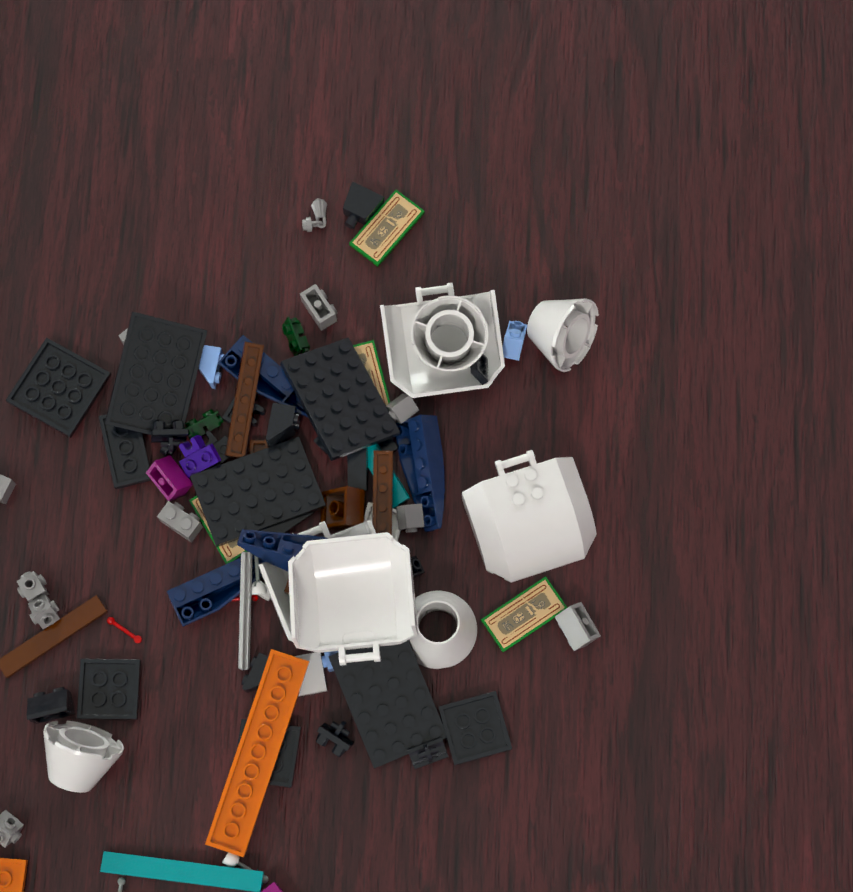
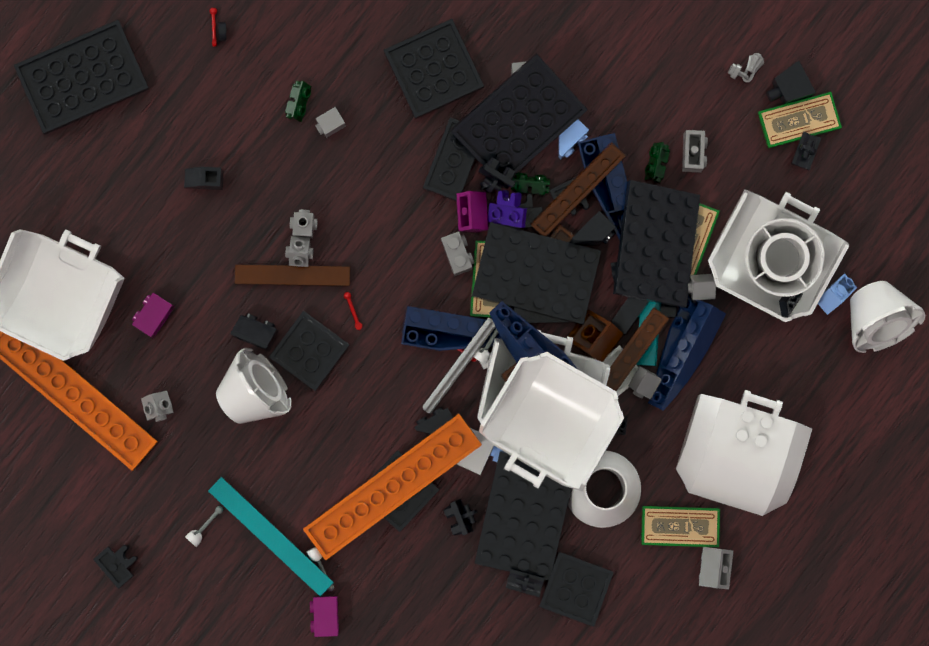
camera: 30 degrees right, 10 degrees up
(409, 247) = (806, 151): none -> black hips

